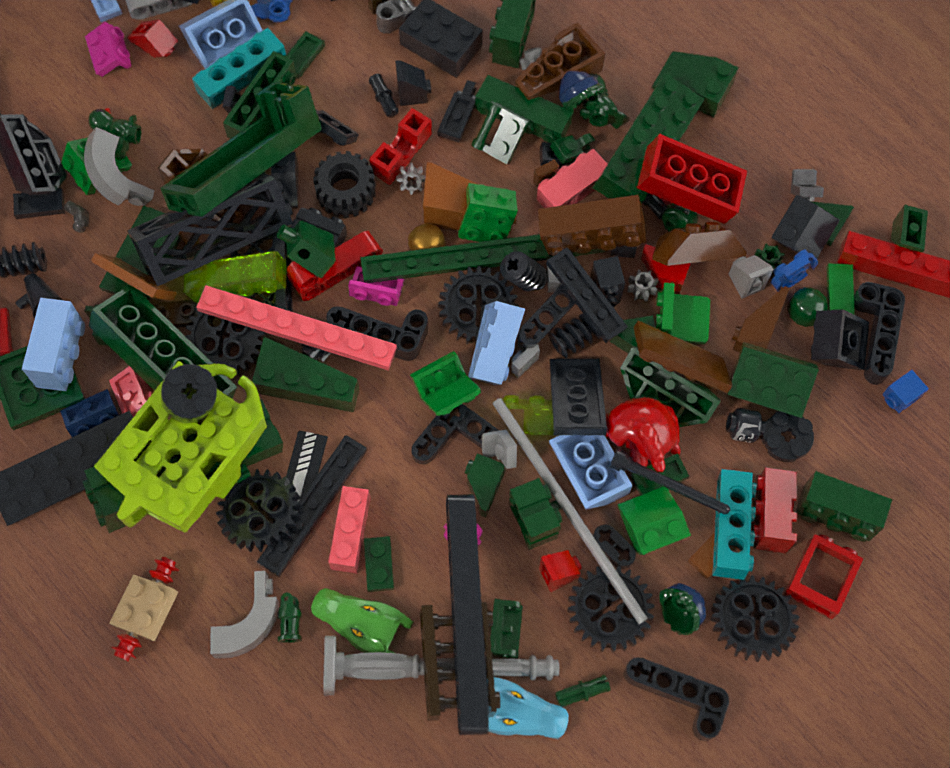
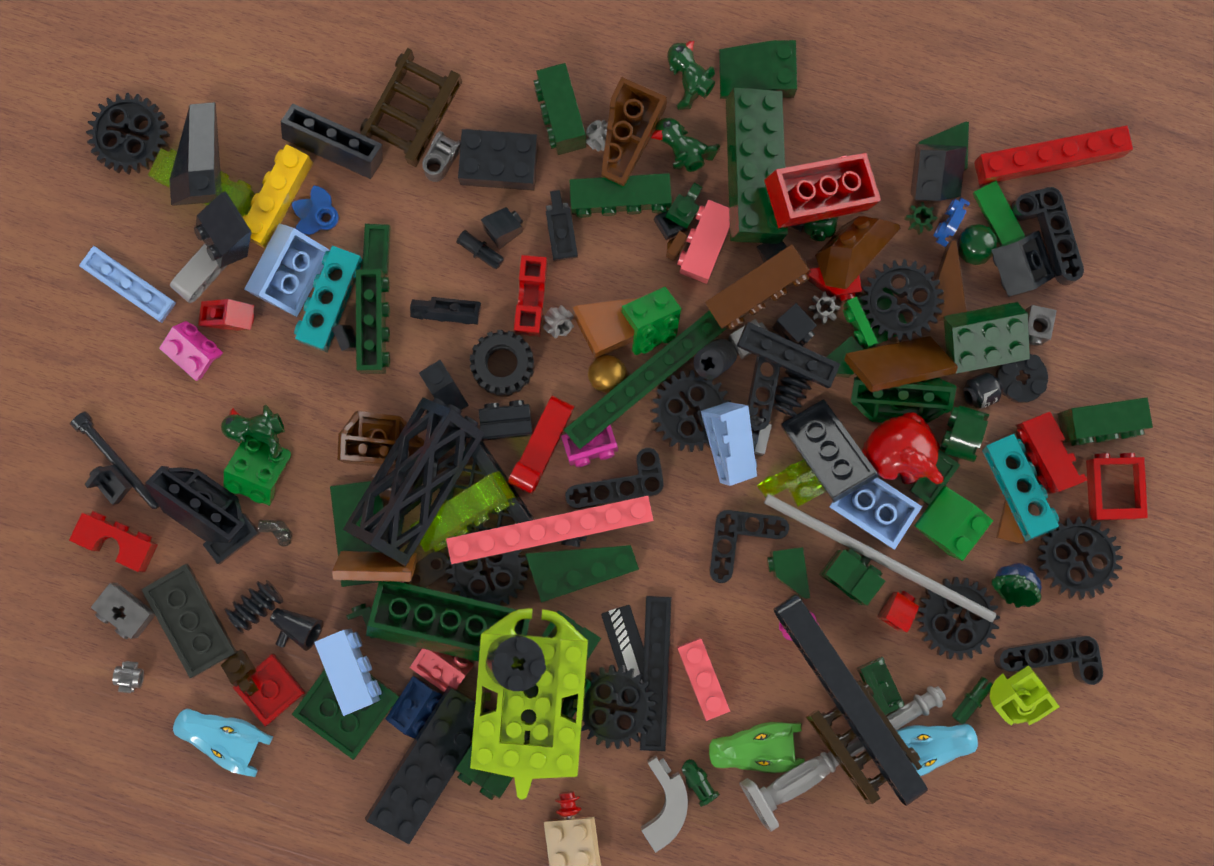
camera: 30 degrees left, 15 degrees up
(105, 175) = (274, 479): light grey arch -> none
(285, 125) = (403, 392): dark green brick -> none
(309, 247) = (519, 451): dark green torso -> none
(379, 564) = (742, 691): dark green plate -> none
(444, 384) = (709, 504): green bracket -> none
(500, 445) = (793, 533): light grey bracket -> none
(507, 136) = (621, 230): plate -> none
(577, 87) = (664, 150): dark blue hair -> none
(618, 542) = (928, 567): black beam -> none
(622, 461) = (904, 492): black piece -> none
(630, 712) = (1022, 697): none -> lime brick
(638, 60) = (695, 78): none -> dark green animal
(693, 320) = (916, 281): none -> black gear
(707, 448) = (966, 433): none -> dark green brick
(750, 275) = (913, 244): light grey slope -> none
(804, 184) = (915, 126): flat silver bracket -> none
(833, 391) = (1046, 318): none -> flat silver brick
(905, 391) = (1101, 280): blue brick -> none
(910, 228) = (1033, 122): dark green slope -> none

